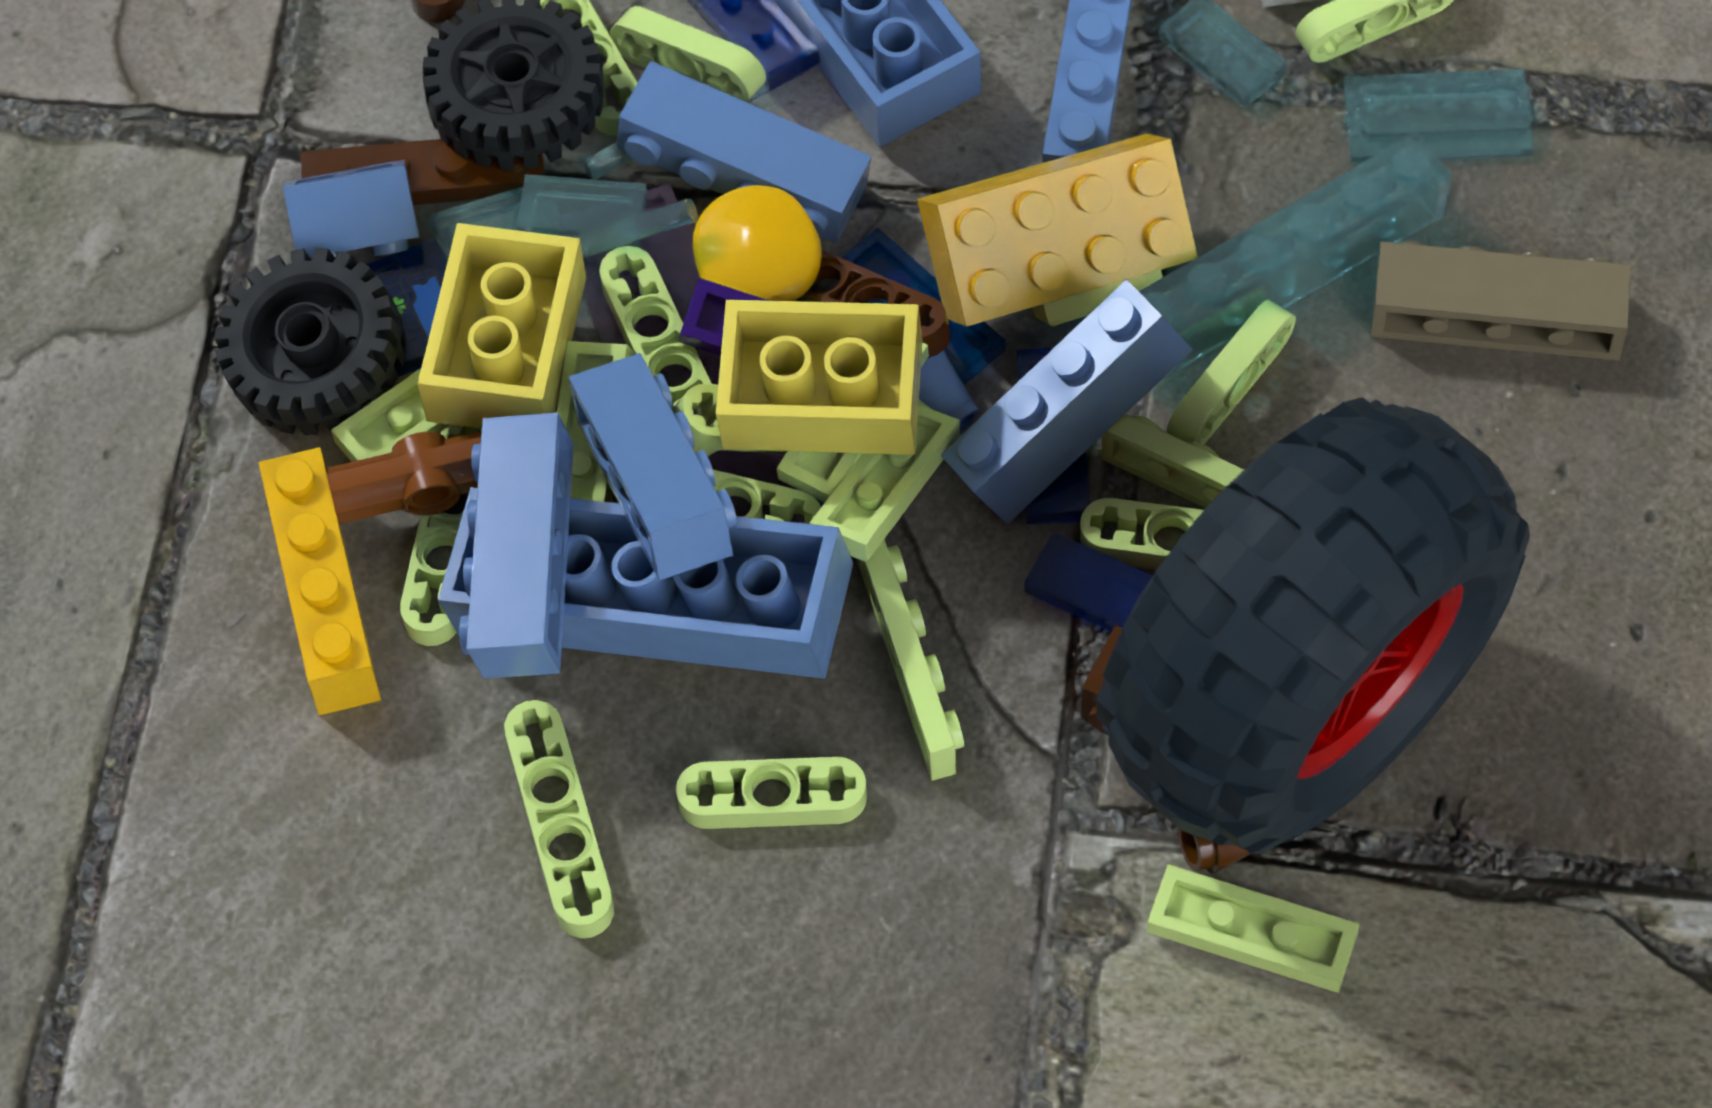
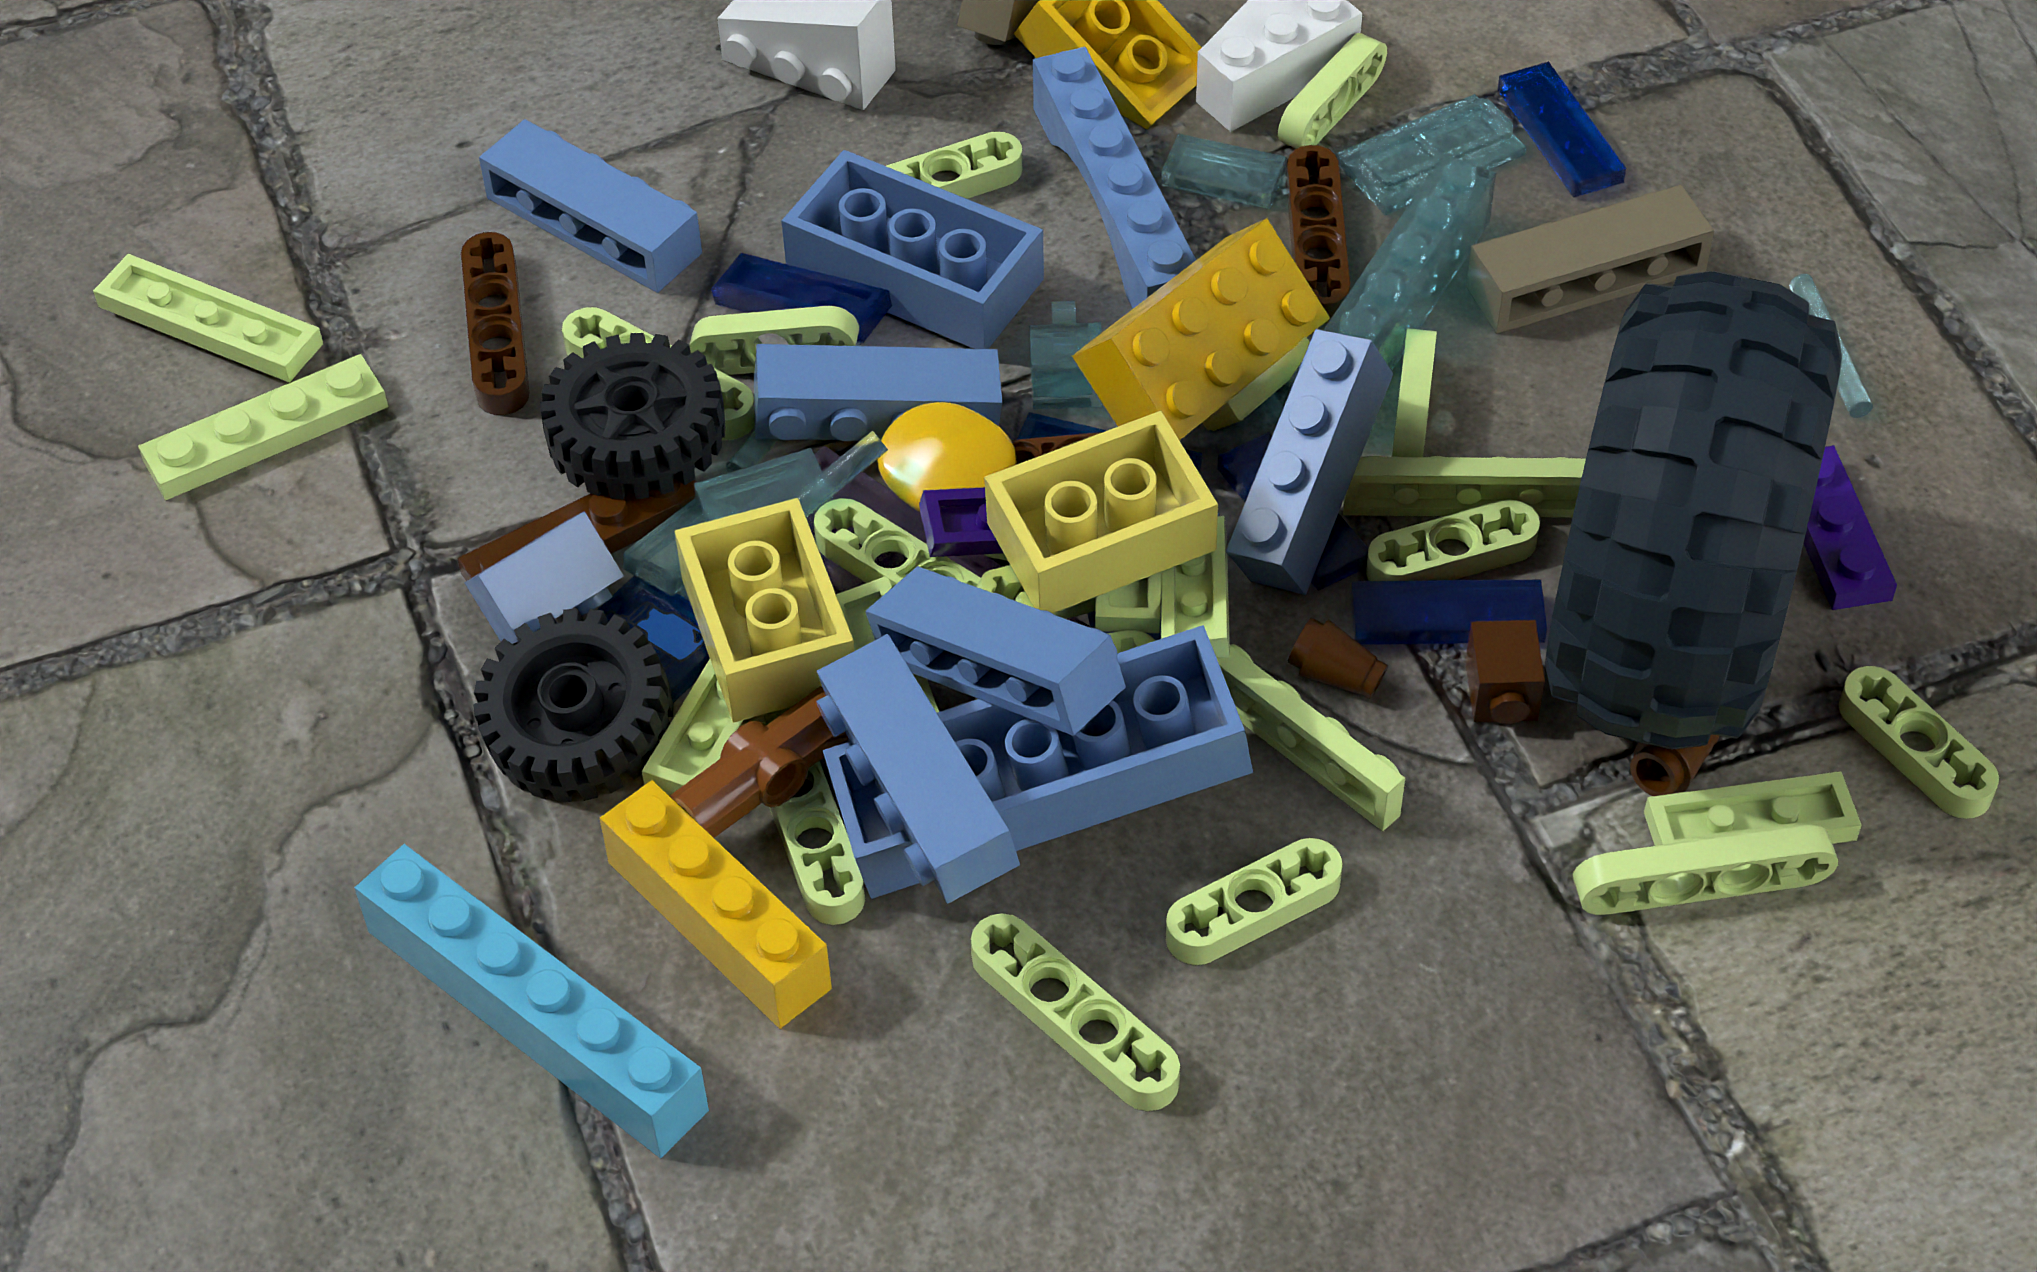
camera: 30 degrees left, 10 degrees down
(126, 597) = (533, 1000): none -> medium azure brick
(932, 173) = (1054, 373): none -> clear light blue brick
(987, 600) = (1336, 659): none -> reddish brown cone
(1176, 955) = (1705, 869): none -> yellowish green beam
(1269, 157) = (1320, 232): none -> reddish brown beam
(1489, 968) = (1923, 768): none -> yellowish green beam
(1542, 682) = (1843, 542): none -> dark purple plate
(1581, 145) = (1561, 129): none -> clear blue tile
(1678, 495) = (1849, 382): none -> clear light blue bar

